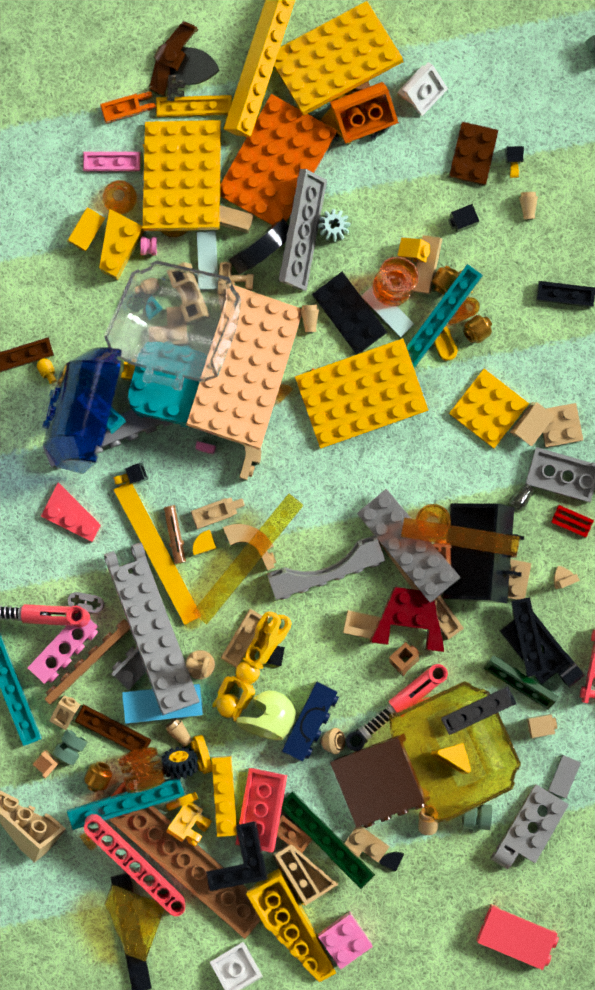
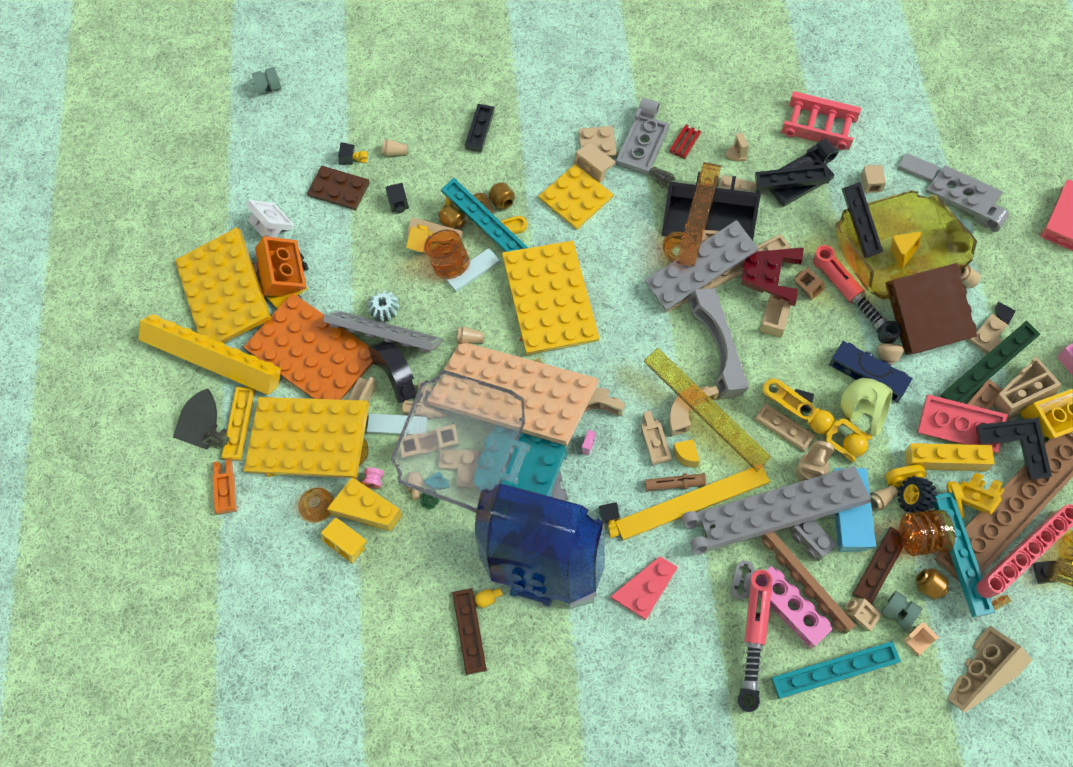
camera: 80 degrees left, 20 degrees down
(111, 161) = (277, 509): bright pink tile -> none
(170, 57) = (182, 440): reddish brown plate -> none
(349, 313) = (470, 301): black plate -> none
(521, 682) = (832, 191): dark green plate -> none

